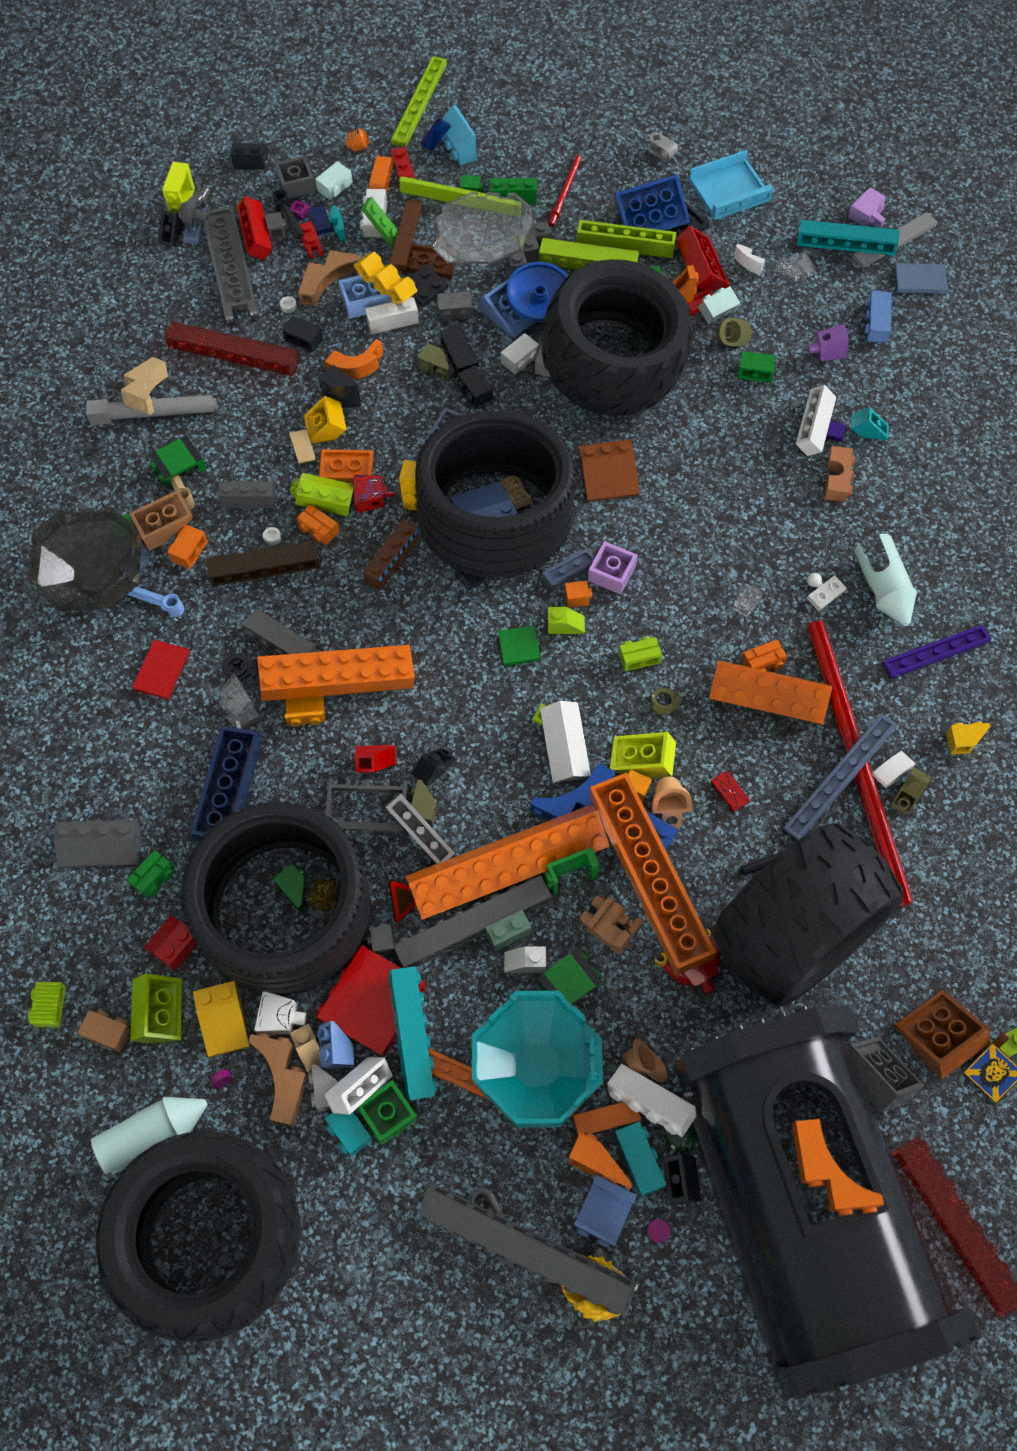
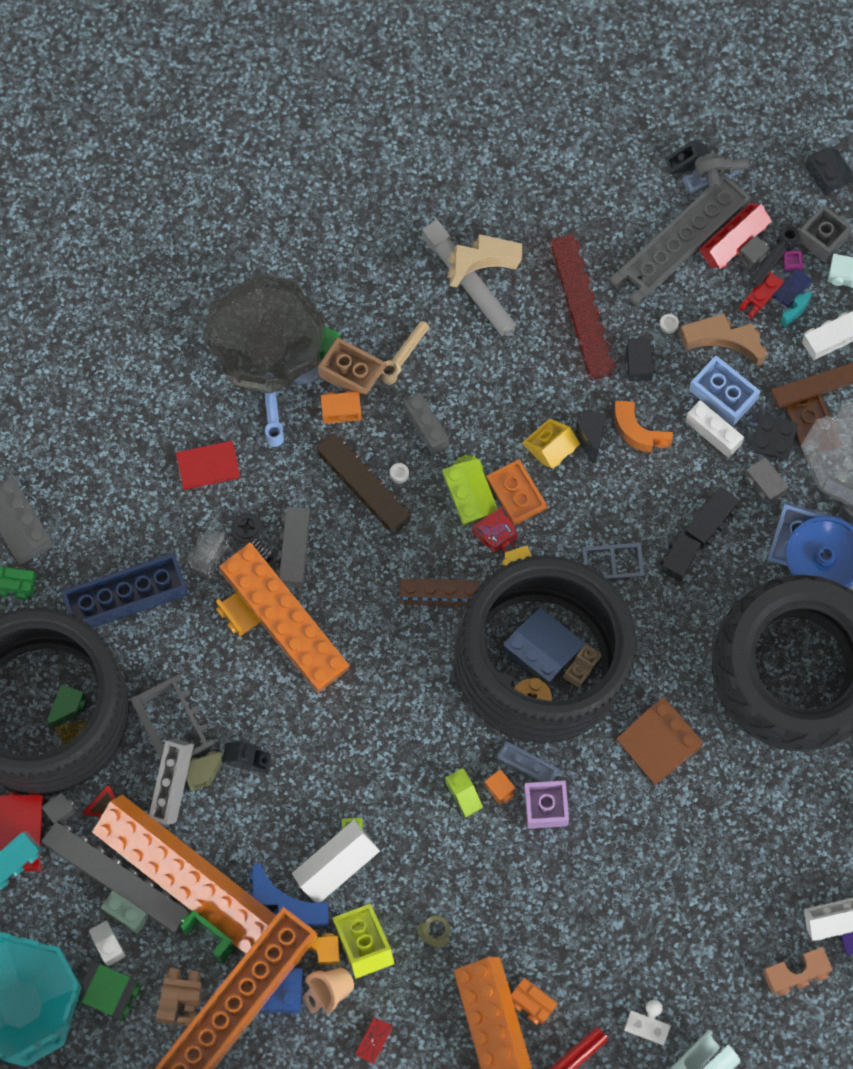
camera: 60 degrees right, 5 degrees up
(175, 459) = (425, 338): green panel -> none
(178, 186) = (734, 135): neon yellow window -> none
(302, 447) = (510, 439): tan slope -> none
(318, 525) = (433, 506): orange brick -> none
(374, 757) = (222, 700): red slope -> none
(380, 221) = (816, 349): bright green plate -> none
(385, 278) = (740, 399): yellow brick -> none
(434, 361) = (686, 502): olive slope -> none
(519, 354) = (745, 576): white brick -> none
(519, 645) = (415, 764): green tile -> none
(640, 653) = (469, 880): lime brick -> none
(747, 600) = (584, 948): clear brick -> none

